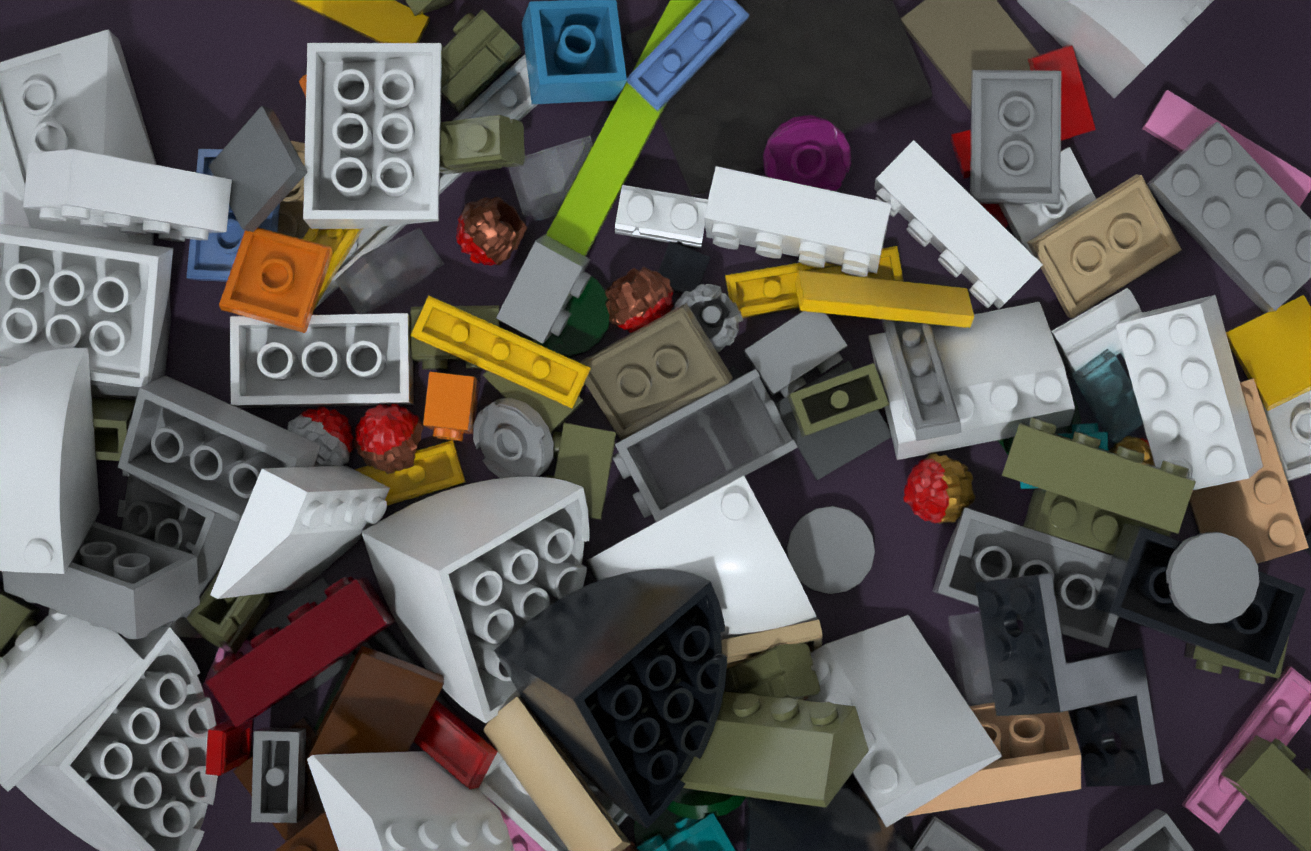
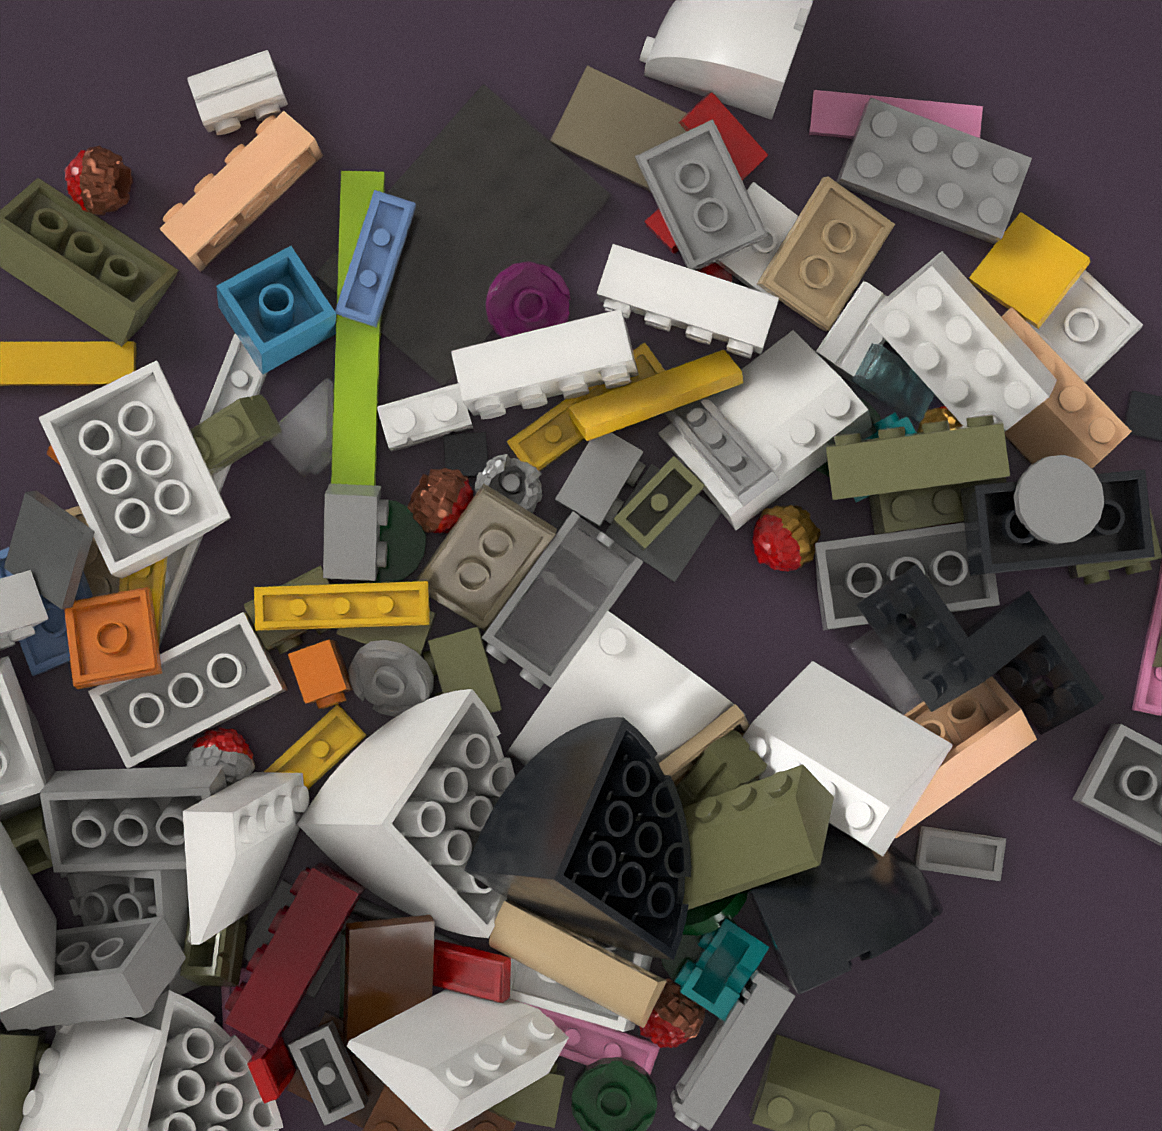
camera: 25 degrees left, 0 degrees up
(388, 271) = (208, 583): clear slope -> none
(388, 437) = (280, 729): red piece -> none
(474, 58) = (192, 358): olive brick -> none
(489, 231) = (280, 504): copper piece -> none
(831, 550) = (716, 637): light grey tile -> none

